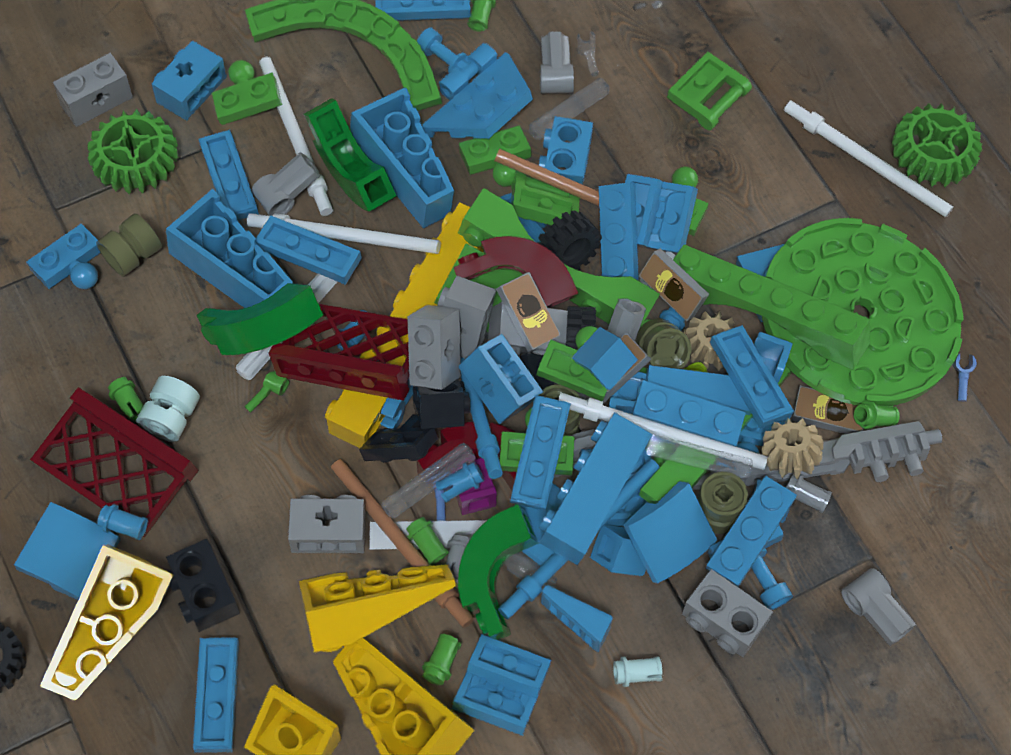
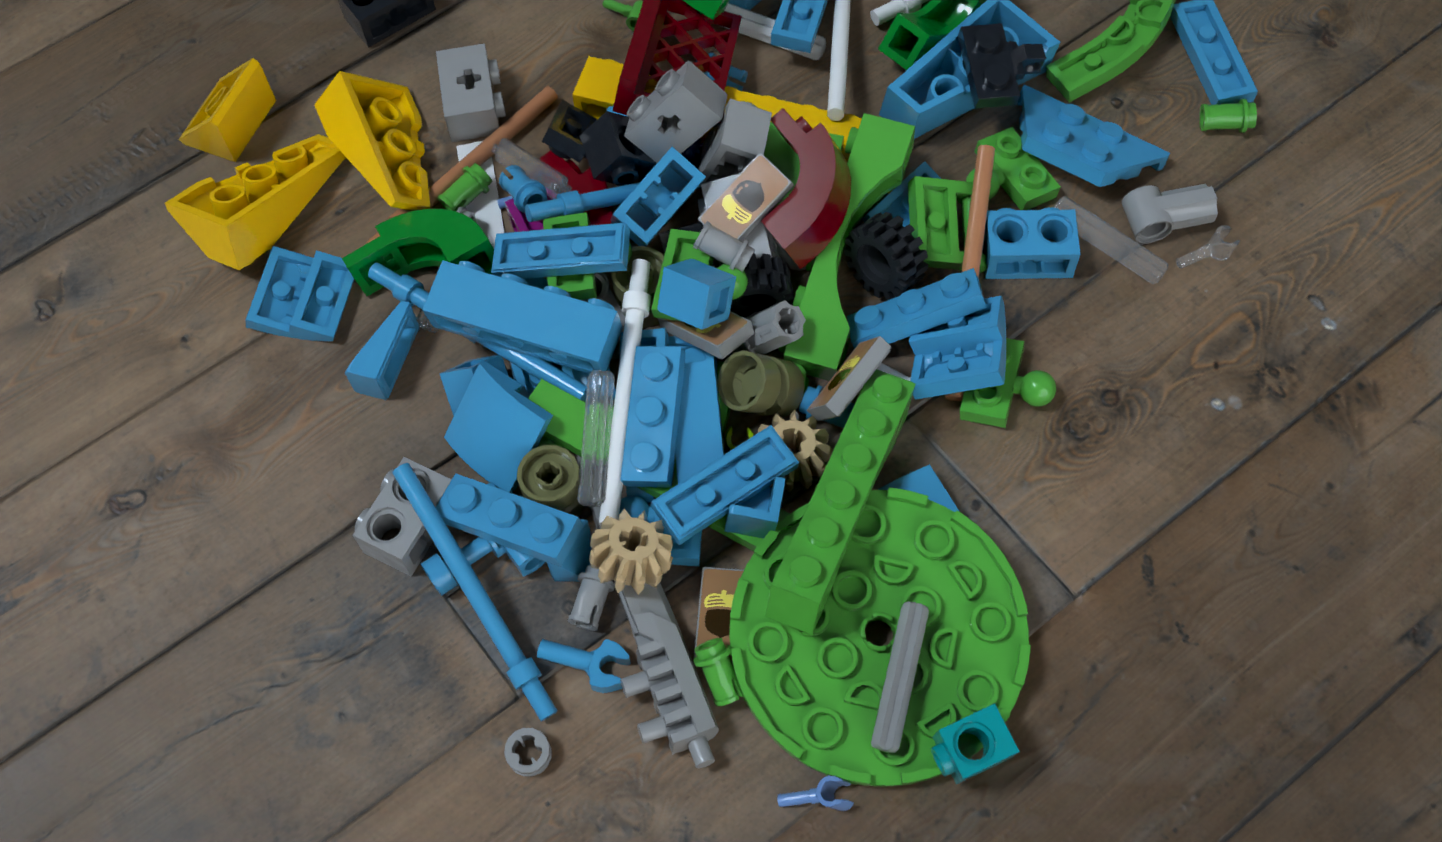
camera: 85 degrees right, 0 degrees up
(216, 695) = (274, 42): dark azure tile -> none
(423, 130) = (996, 65): none -> black hinge
(440, 662) = (323, 229): bright green pin -> none
(461, 66) = (1130, 108): dark azure bar -> none
(569, 332) = (724, 247): none -> light grey pin
(637, 670) = (328, 434): light aqua pin -> none
(701, 83) = (1204, 388): bright green plate -> none
(815, 124) = (1189, 550): white bar -> none
(853, 503) = (587, 661): none -> dark azure bar
(857, 546) = (522, 670): none -> dark azure bar
(872, 597) = (448, 692): light grey piece -> none
(900, 300) = (900, 677): none -> light grey axle
(906, 557) = (540, 743): none -> light grey bush
(935, 155) = (1222, 737): bright green gear -> none
(950, 267) = (992, 733): none -> teal brick

